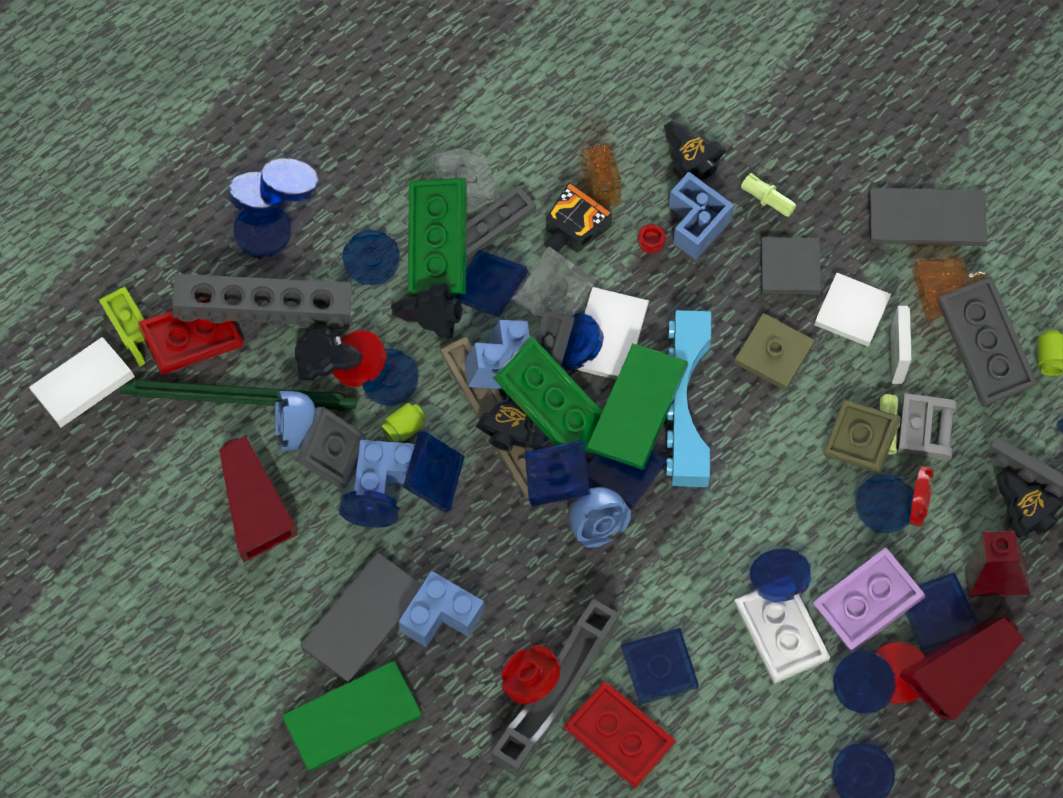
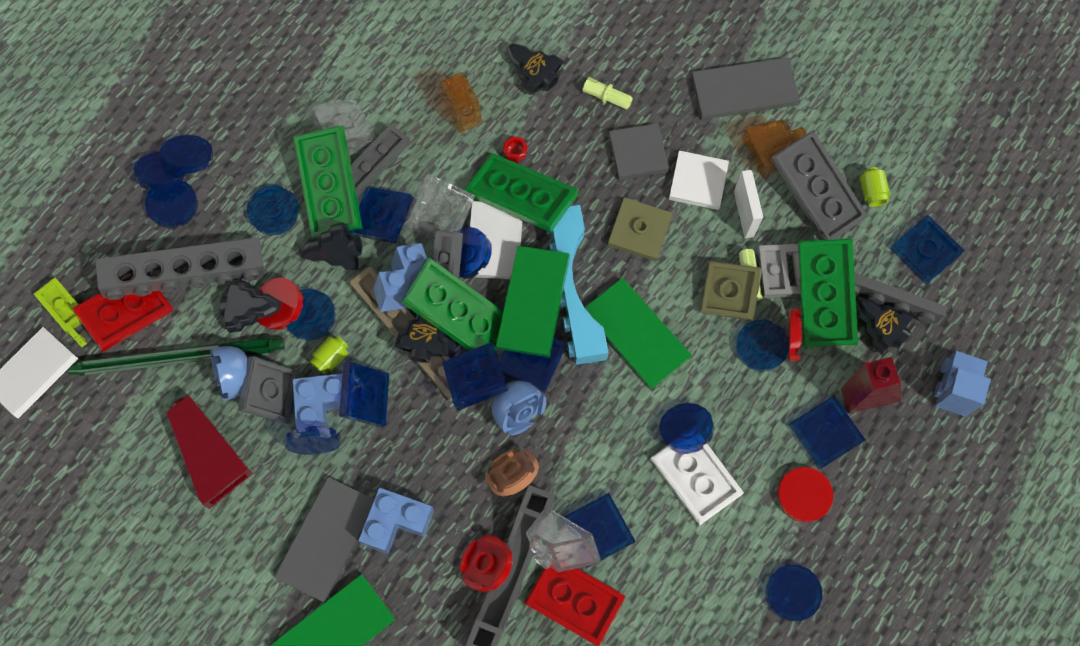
camera: 15 degrees left, 5 degrees up
(575, 220) = (446, 145): torso -> none
(578, 583) = (512, 472): none -> nougat tile
(616, 665) = (561, 543): none -> clear slope
(649, 286) = (522, 192): none -> green tile
(703, 212) = (555, 118): medium blue brick -> none
(748, 465) = (638, 334): none -> green tile
(864, 682) = (779, 510): clear blue tile -> none
(868, 600) = (767, 435): lavender plate -> none
(962, 667) = (860, 479): dark red slope -> none
(970, 458) = (827, 292): none -> green tile

